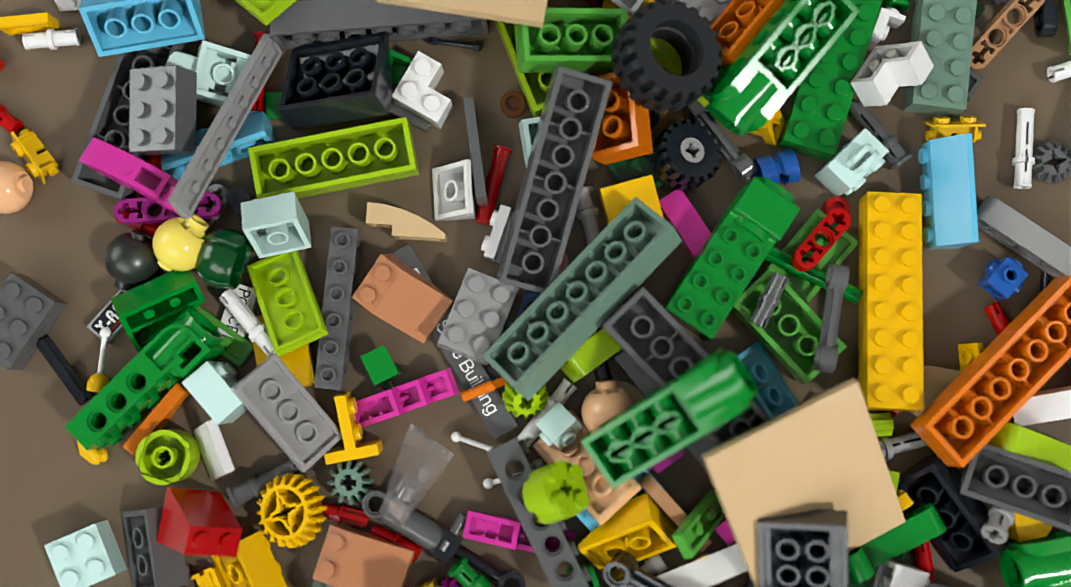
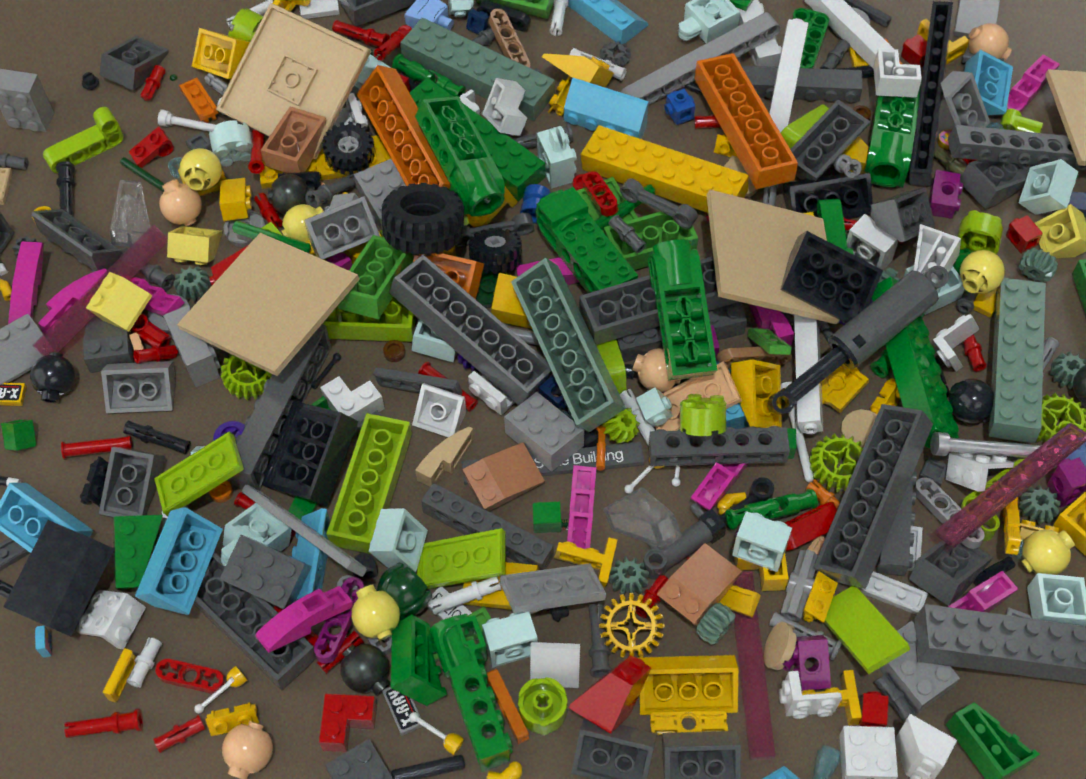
camera: 70 degrees left, 25 degrees down
(50, 82) = (171, 678): none -> red beam
(73, 136) = (234, 679): none -> hinge
(76, 260) = (340, 715): none -> red brick
(489, 551) = (729, 500): none -> yellow arm
(997, 137) = (582, 68): none -> yellow slope

